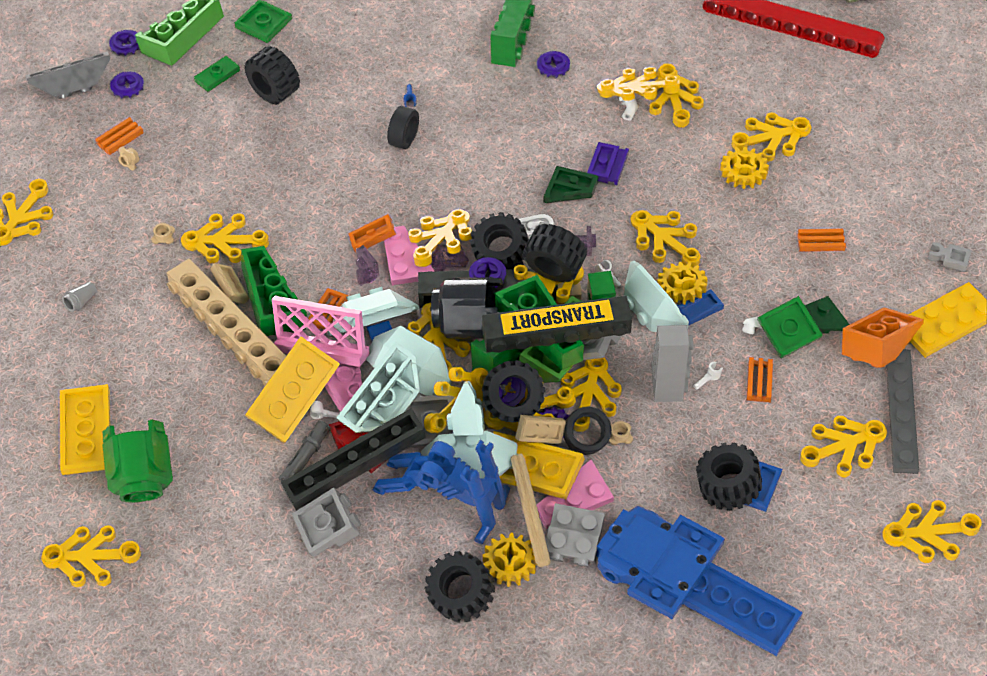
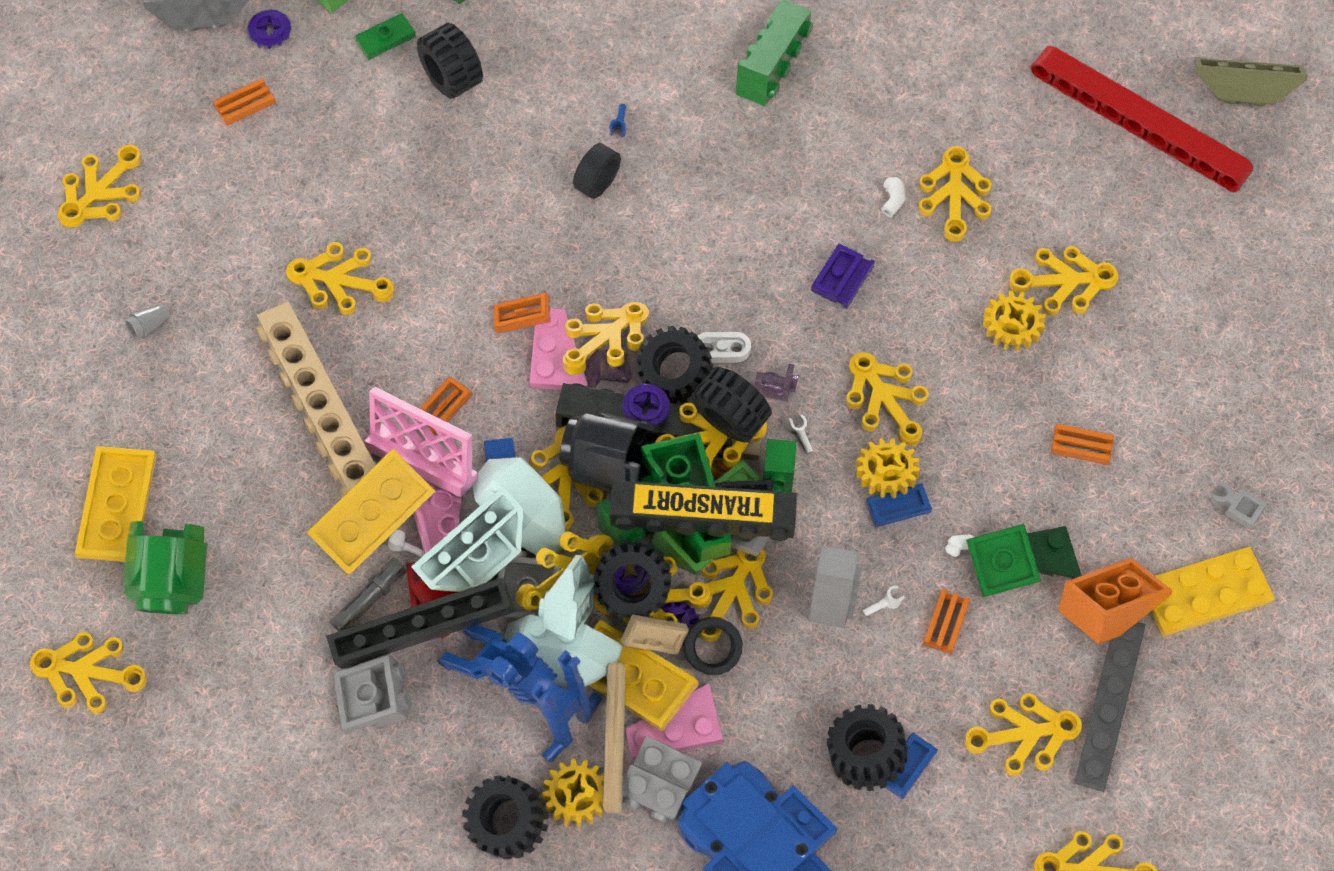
camera: 10 degrees right, 10 degrees up
(128, 157) = (248, 137): tan plate -> none
(161, 229) = (264, 248): tan plate -> none
(229, 283) = (331, 343): tan plate -> none
(263, 284) = (373, 363): green wedge -> none
(367, 265) = (506, 360): clear purple bracket -> none
(376, 307) = (498, 419): light aqua wedge -> none
(560, 60) = (824, 108): dark purple gear -> none
(570, 185) = (786, 297): dark green wing -> none
(620, 427) = (757, 648): tan plate -> none
(627, 91) = (877, 166): yellow plant -> none
(649, 300) = (840, 489): light aqua wedge -> none

